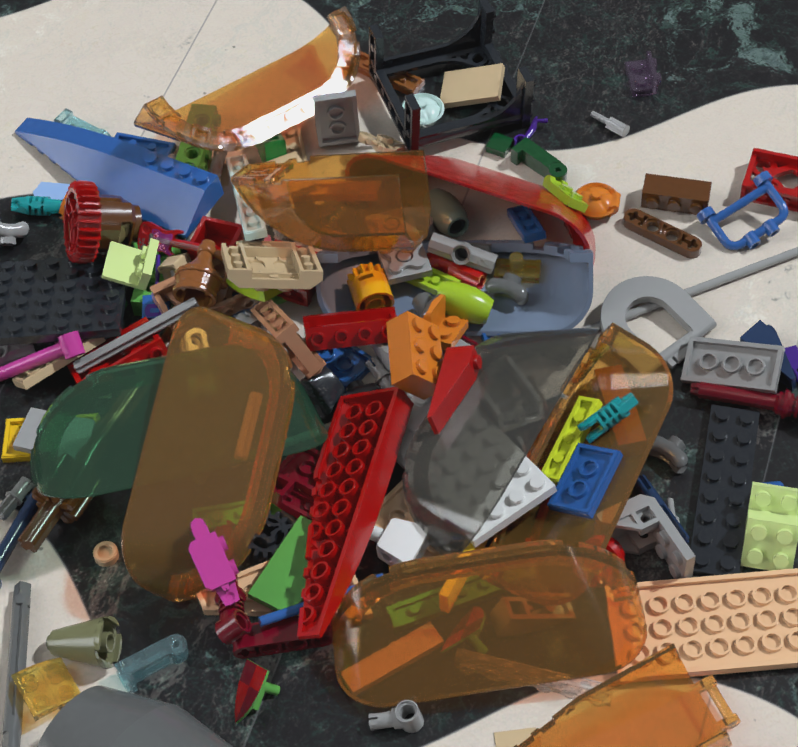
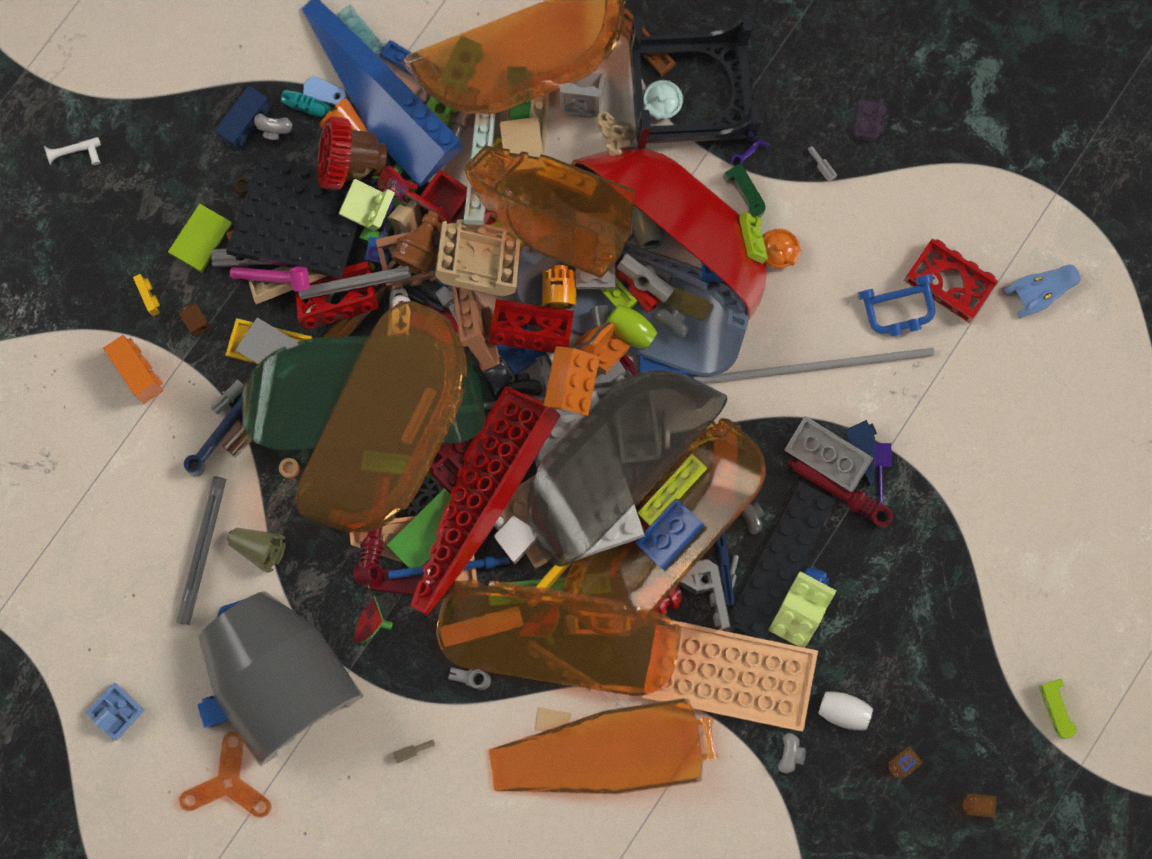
camera: 15 degrees right, 25 degrees up
(45, 687) = (221, 575): clear yellow slope -> none
(151, 660) = (295, 575): clear light blue leg -> none
(212, 564) = (362, 526): dark pink hinge -> none
(455, 379) = (595, 415): red slope -> none
(472, 85) = (713, 88): tan tile -> none
(499, 145) = (718, 158): dark green tile -> none
(608, 416) = (705, 486): teal hinge -> none
(663, 231) = (820, 300): reddish brown beam -> none
(665, 294) = (807, 375): light grey piece -> none
(675, 194) = (849, 263): reddish brown brick -> none

